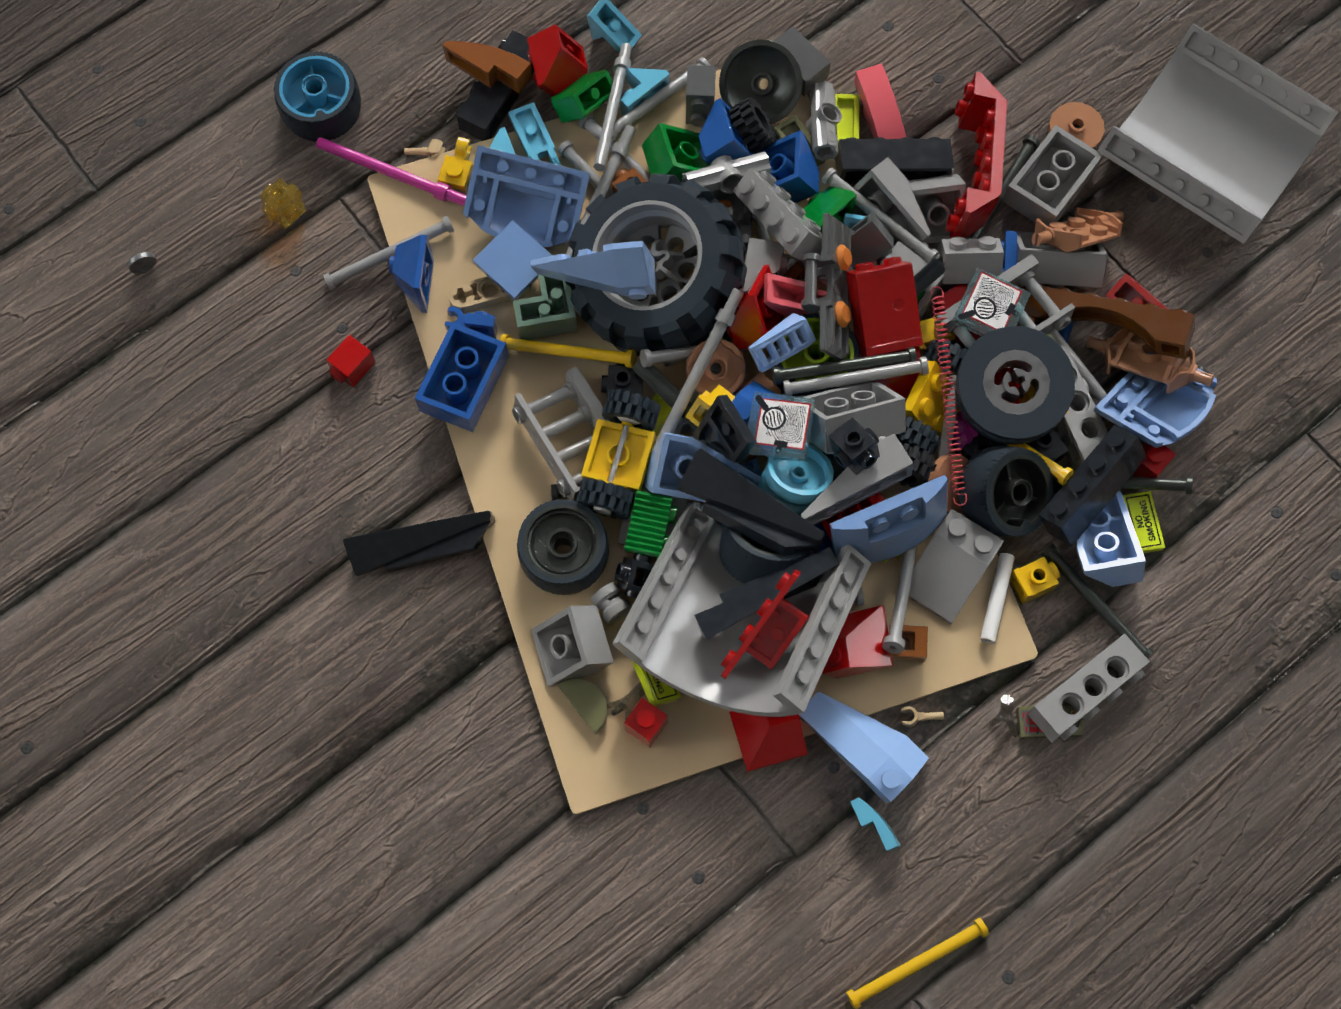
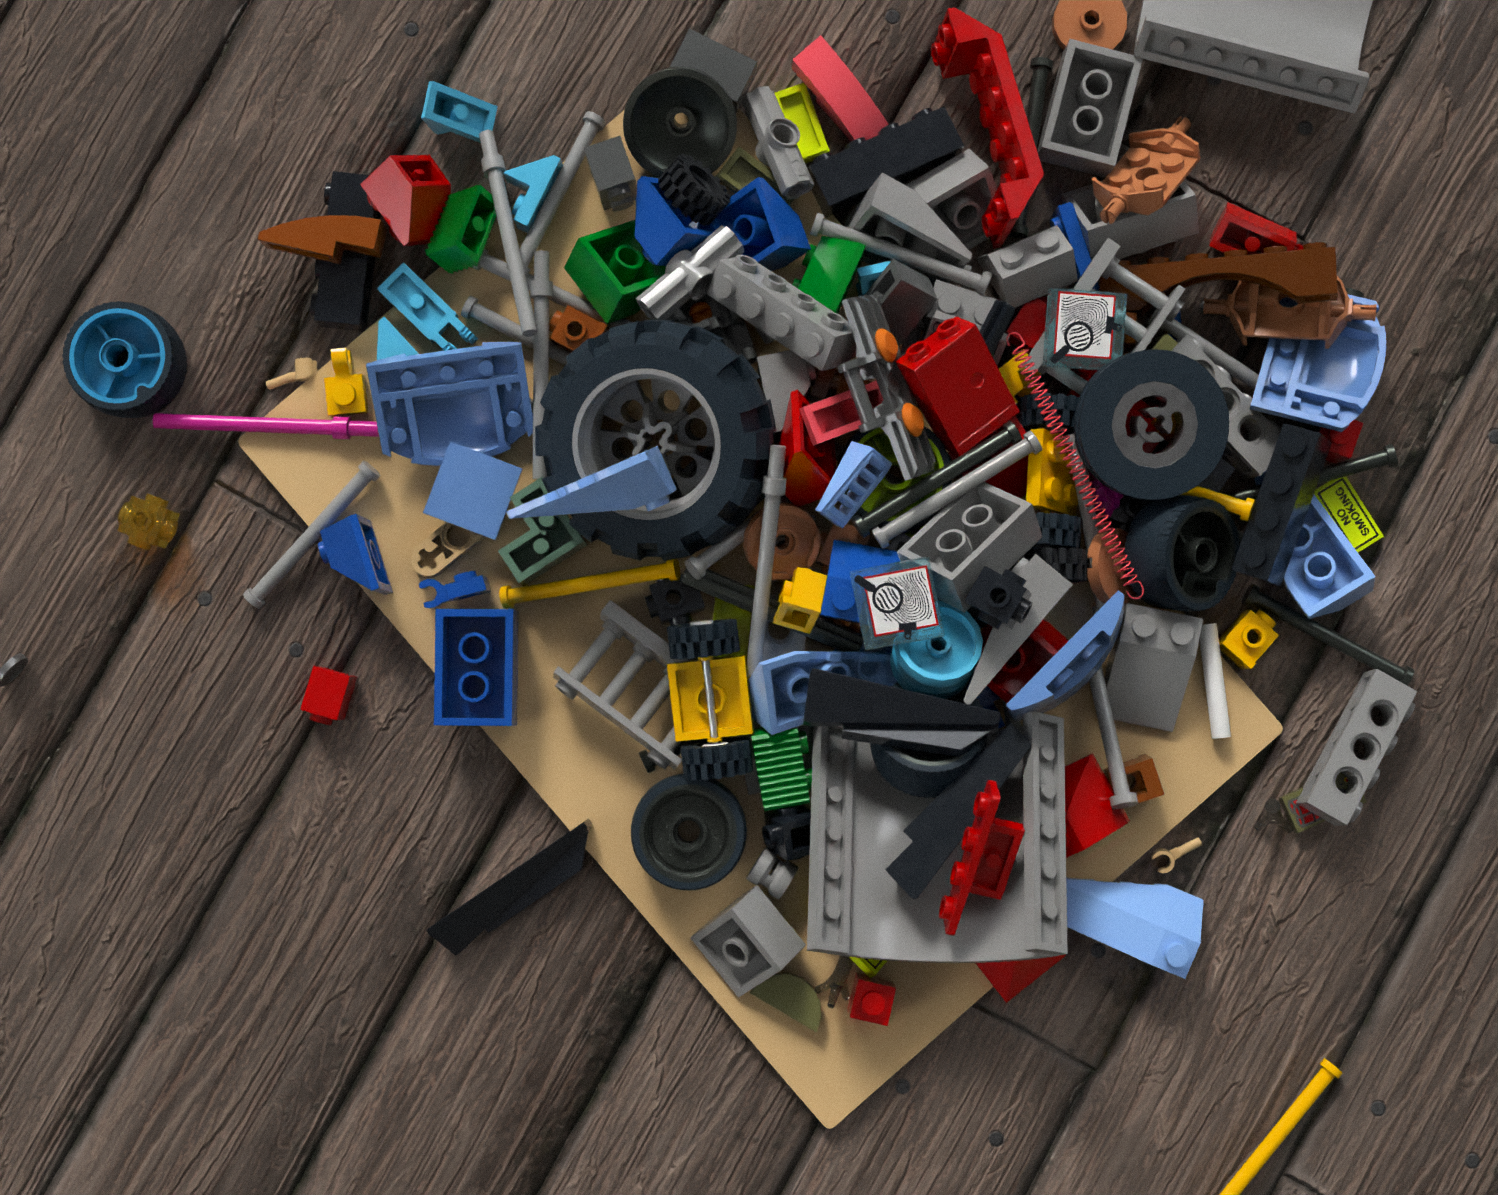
camera: 25 degrees left, 15 degrees up
(726, 430) = (836, 634): black wing -> none
(868, 816) = (1164, 997): medium azure slope -> none

